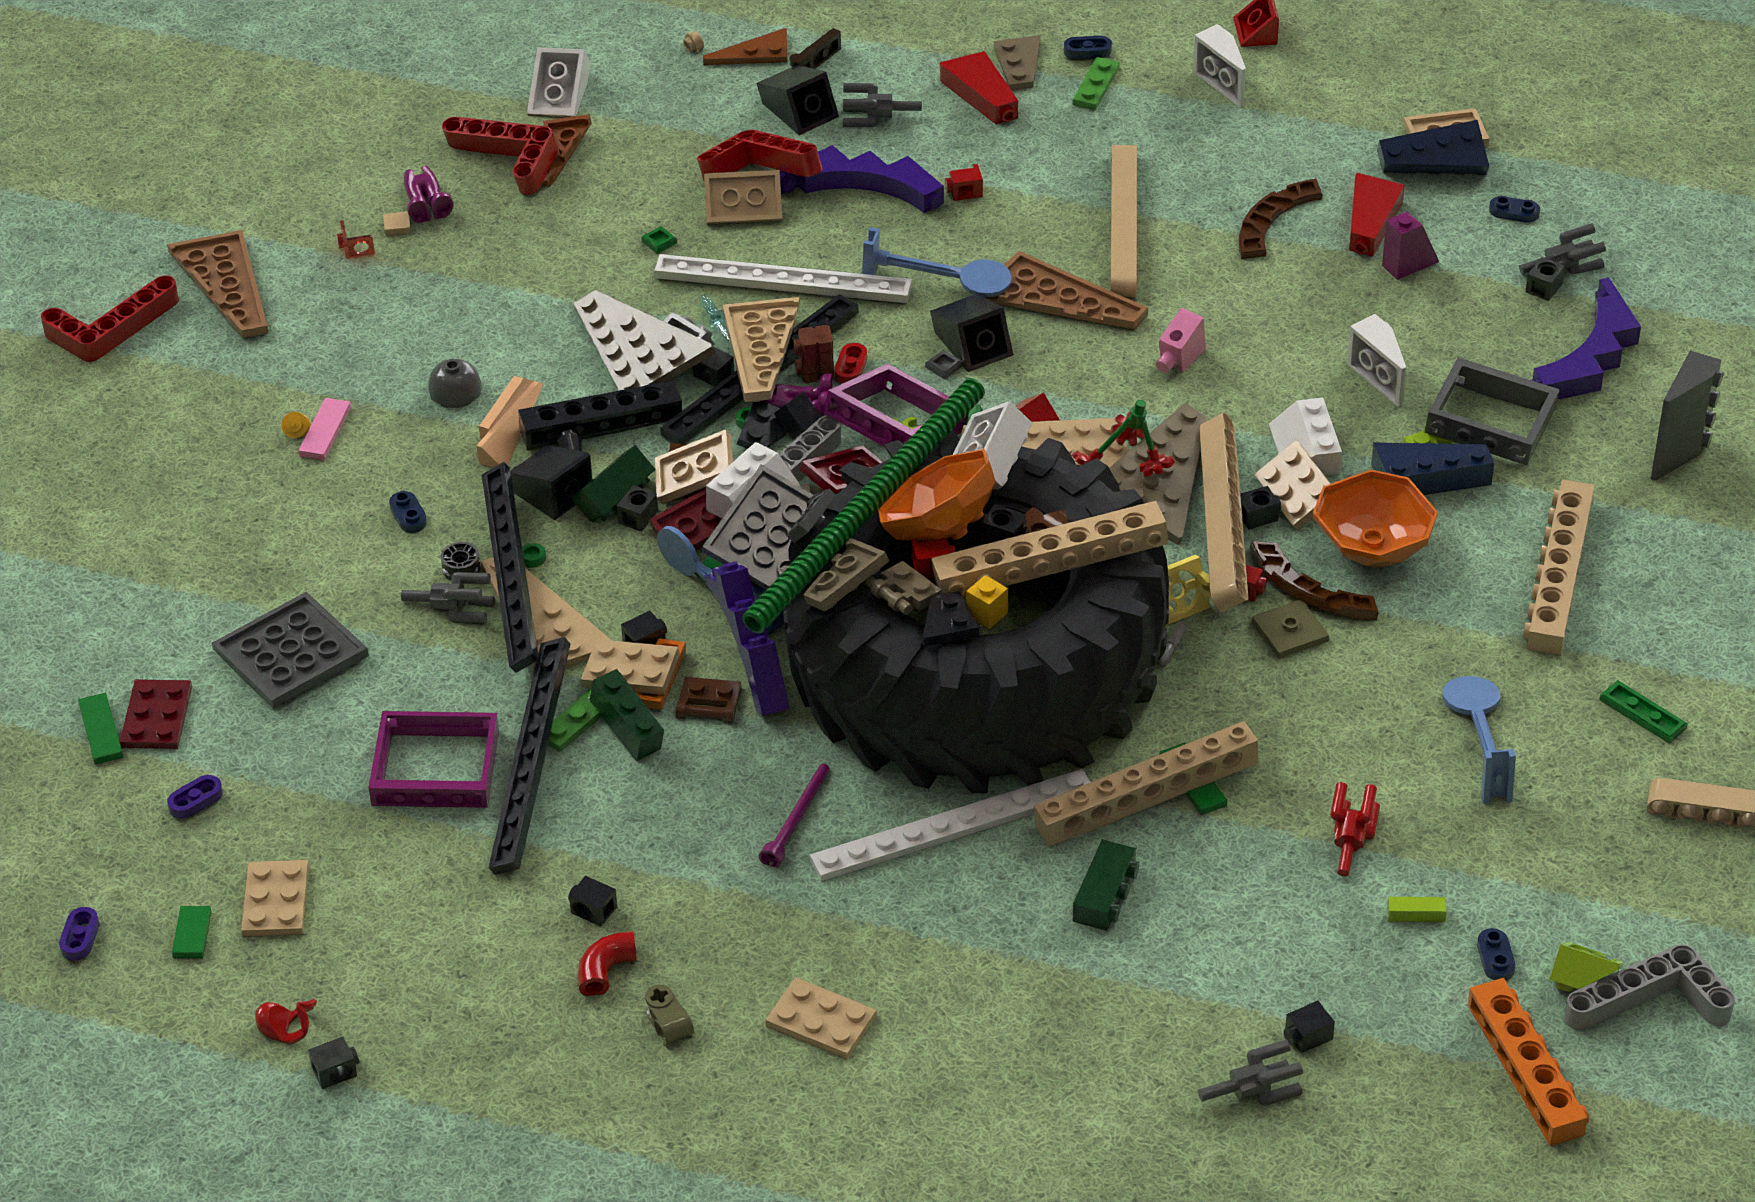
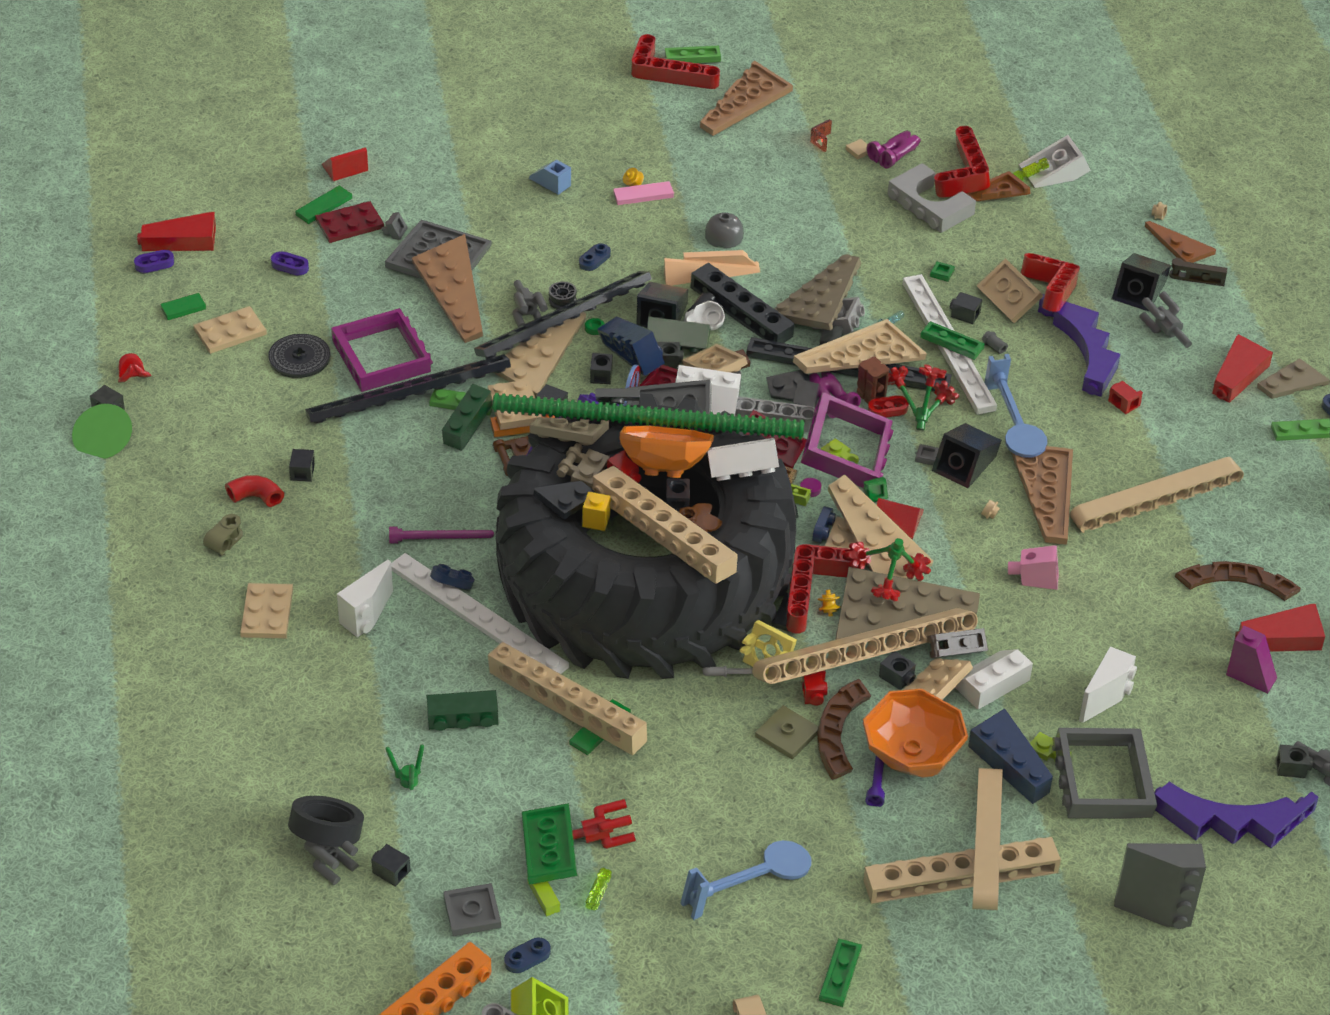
camera: 60 degrees right, 0 degrees up
(40, 677) = (347, 164): none -> red slope
(50, 886) = (180, 234): none -> red slope
(104, 292) = (694, 54): none -> bright green plate
(206, 671) = (395, 226): none -> dark grey tile
(234, 492) = (553, 176): none -> medium blue slope
(359, 648) = (450, 280): none -> medium nougat wing
(362, 859) = (285, 359): none -> black piece
(385, 1083) = (102, 430): none -> bright green sticker
(511, 213) = (938, 215): none -> light grey arch
(554, 101) = (1032, 169): none -> clear neon green axle
(601, 447) = (706, 313): none -> white hair
(611, 523) = (632, 344): none -> dark blue wedge
(618, 571) = (601, 368): none -> black brick
(740, 242) = (965, 307): none -> black brick
(789, 271) = (952, 340): none -> green tile
(807, 244) = (994, 342): none -> dark grey pin
(868, 311) = (942, 391): none -> red plant
(885, 821) = (458, 578): none -> dark blue plate
(885, 907) = (365, 599): none -> white slope
(1064, 346) = (990, 509): none -> tan plate
(1177, 967) = (409, 773): none -> green plant
(1230, 1073) = (308, 824): none -> black tyre
(1251, 446) = (957, 643): none -> plate
(1356, 875) = (549, 844): none -> green tile
(1409, 978) = (472, 909): none -> dark grey plate
(1421, 592) = (875, 795): none -> dark purple piece
(1432, 862) = (598, 889): none -> clear neon green axle
(1549, 521) = (987, 839): none -> tan beam

